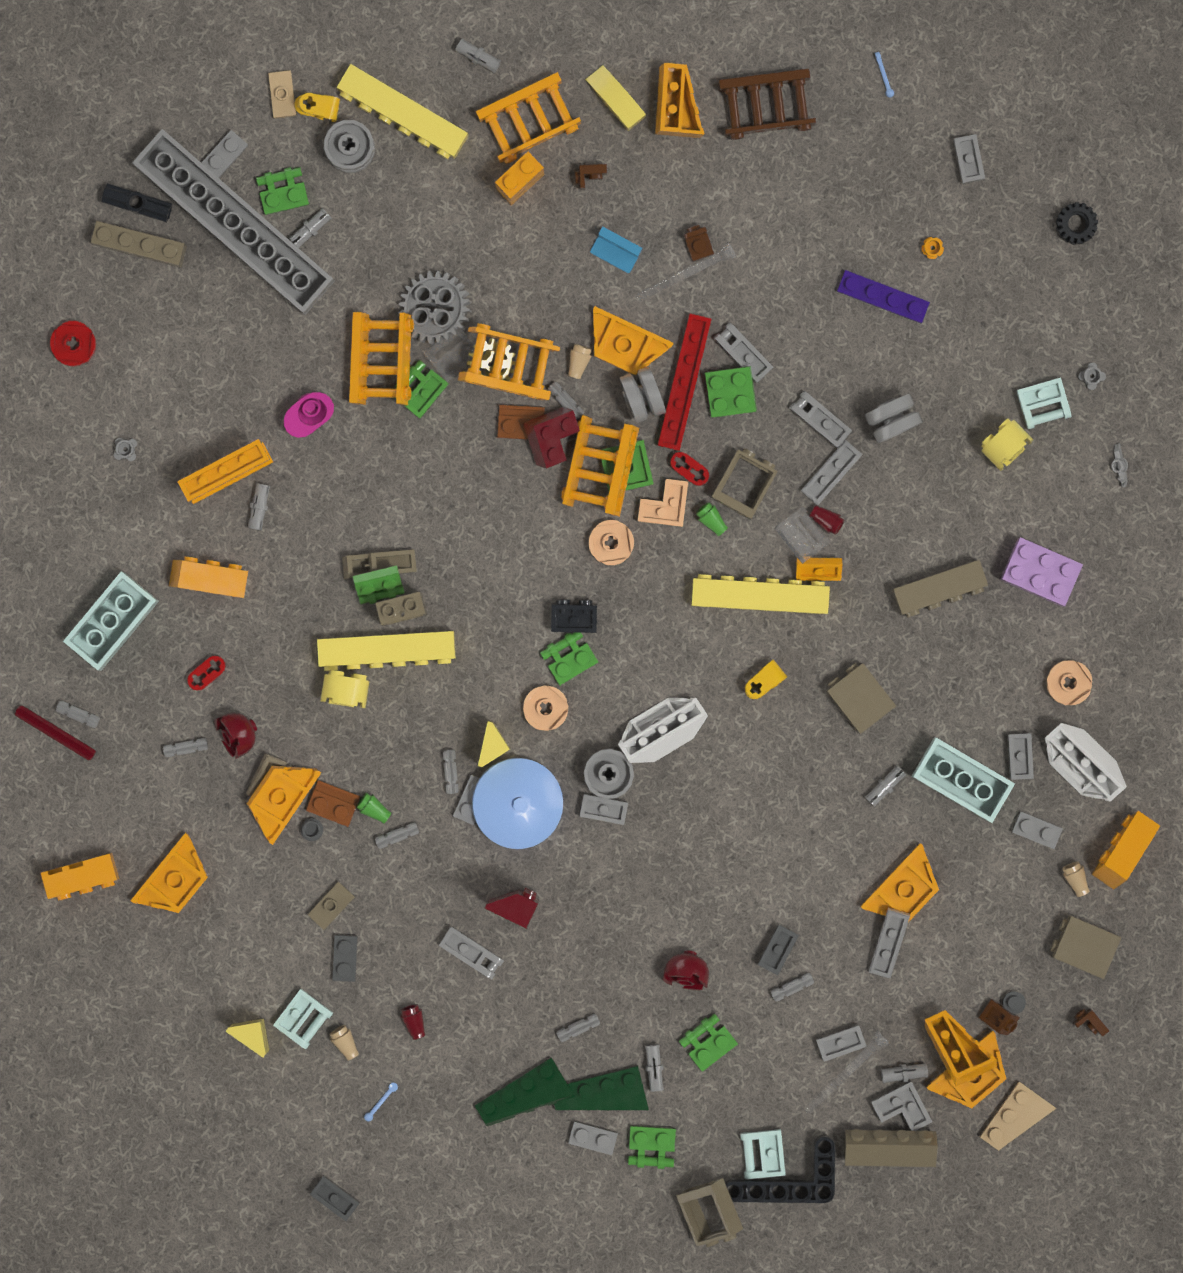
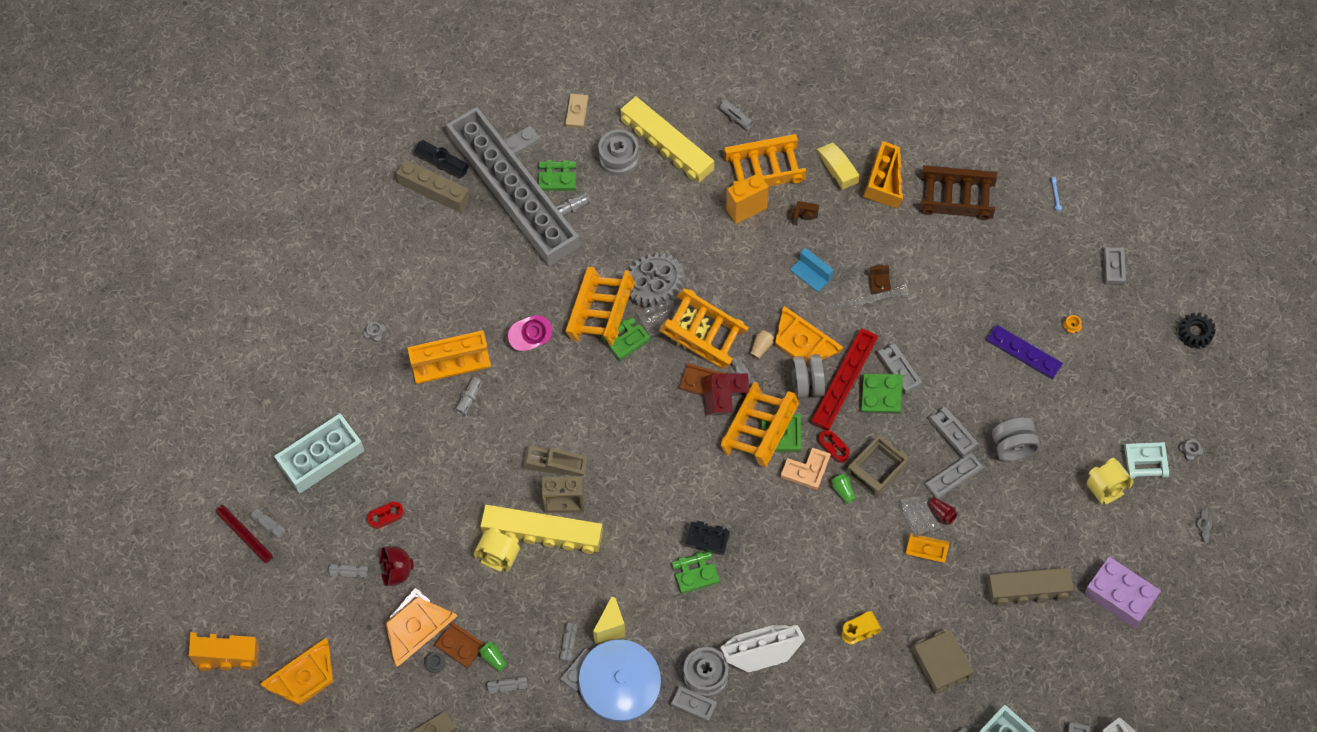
camera: 15 degrees right, 25 degrees down
(65, 333) = (362, 255): red plate -> none
(208, 577) = (411, 438): light orange wedge -> none
(320, 106) = (603, 121): yellow piece -> none
(378, 585) = (547, 468): bright green plate -> none
(558, 706) = (666, 597): light nougat plate -> none
(621, 550) = (746, 481): light nougat plate -> none
(759, 595) = (872, 557): light yellow brick -> none
(1082, 682) = (1136, 682): light nougat plate -> none

